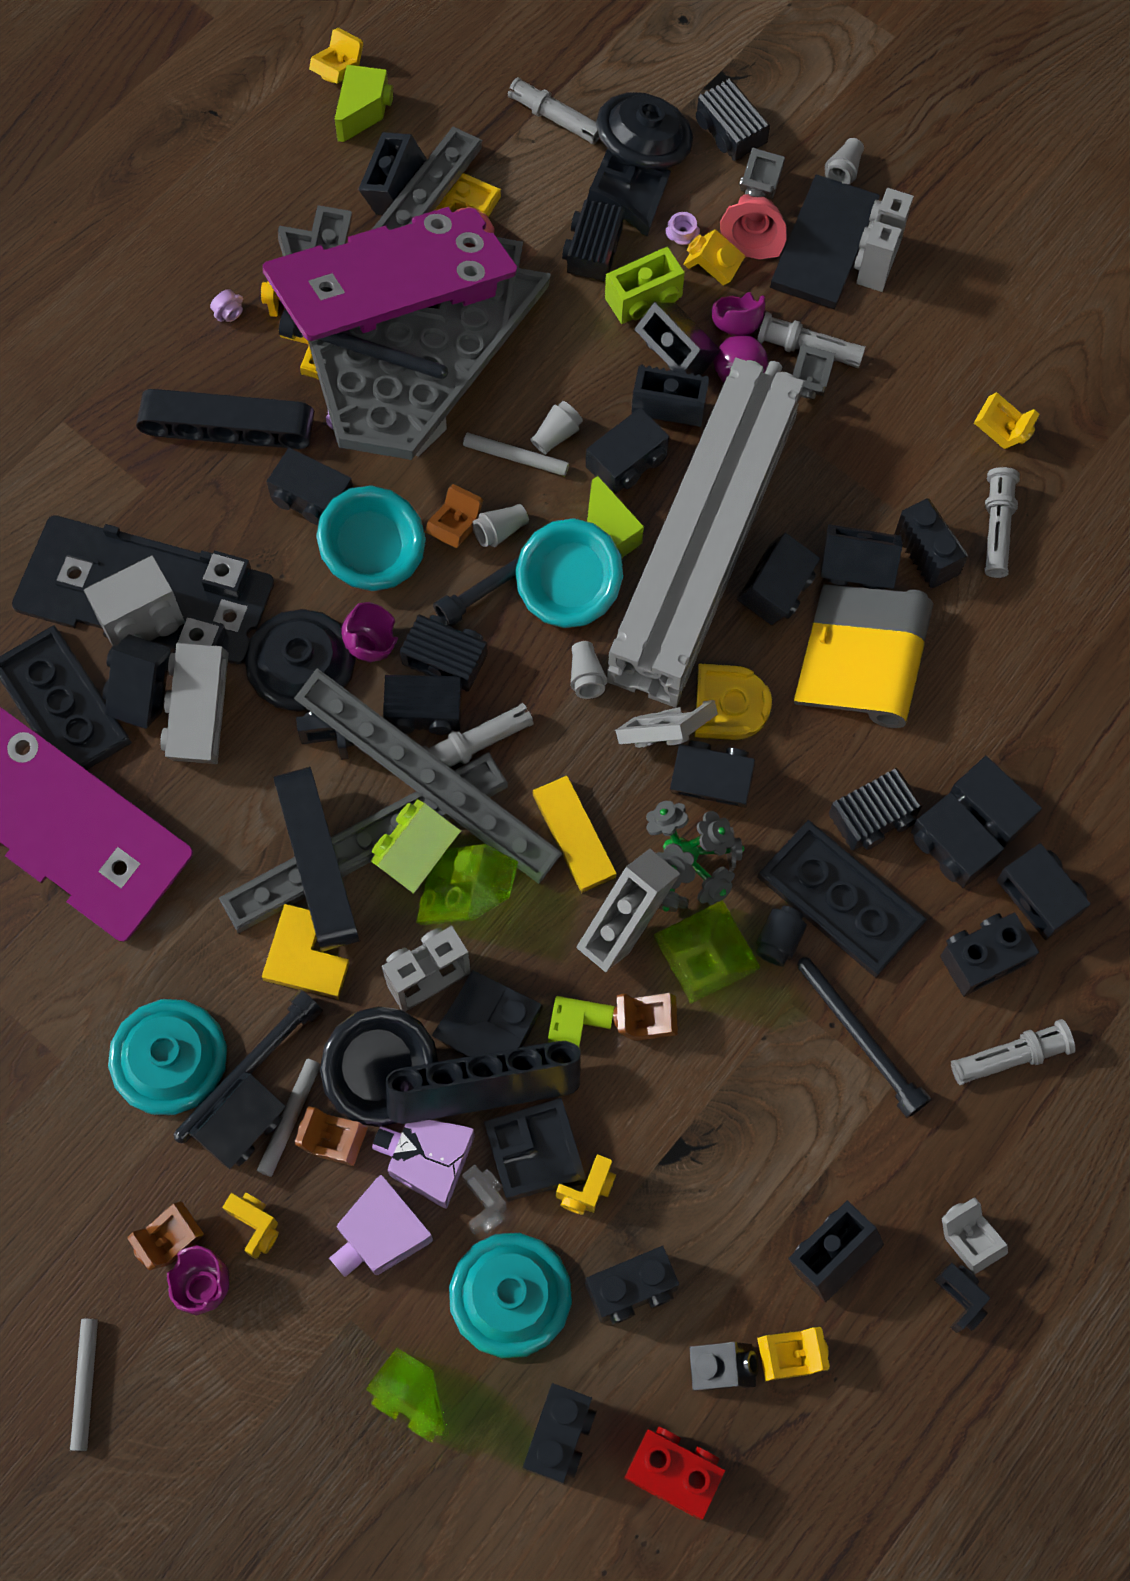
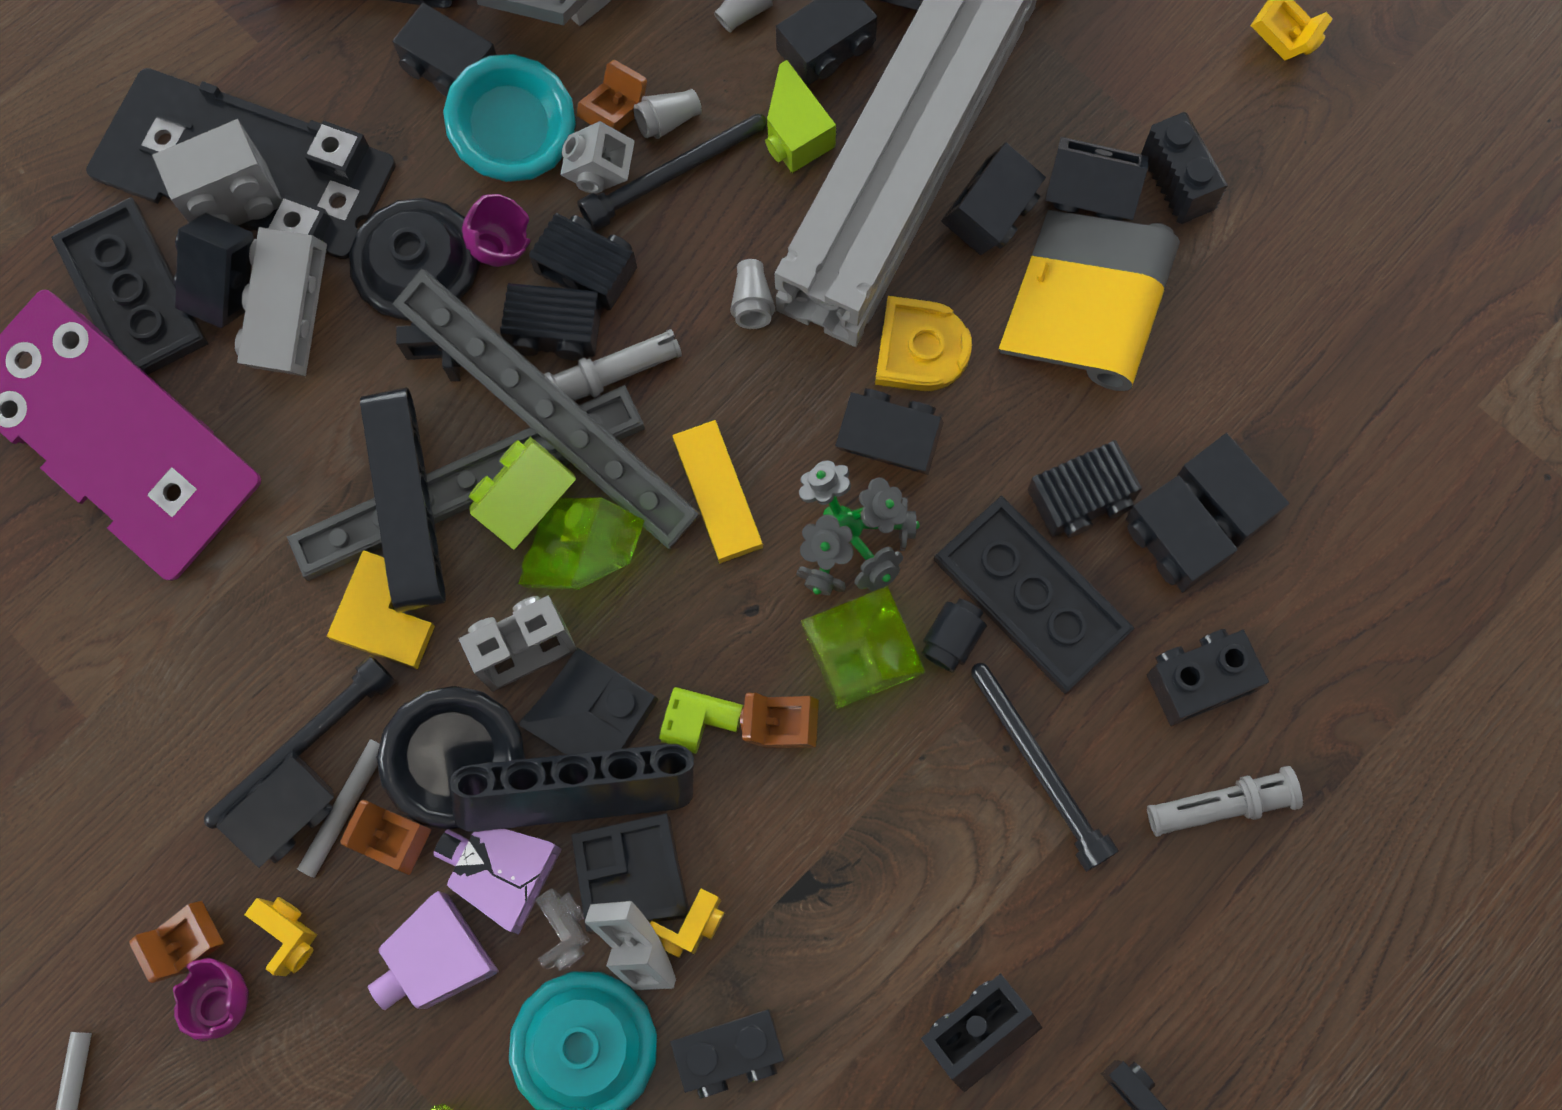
camera: 10 degrees right, 5 degrees up
(167, 1057) = (207, 723): teal piece -> none
(447, 566) = (597, 157): none -> light grey brick
(516, 454) = (695, 29): light grey bar -> none
(548, 1207) = (636, 948): none -> light grey slope
(569, 573) = (741, 175): teal piece -> none
(628, 910) = (767, 591): light grey brick -> none
(665, 726) = (839, 369): light grey wing -> none
(973, 1236) = (1153, 1027): light grey bracket -> none
(1001, 506) = (1273, 130): light grey pin -> none
(1043, 891) = (1282, 605): black brick -> none

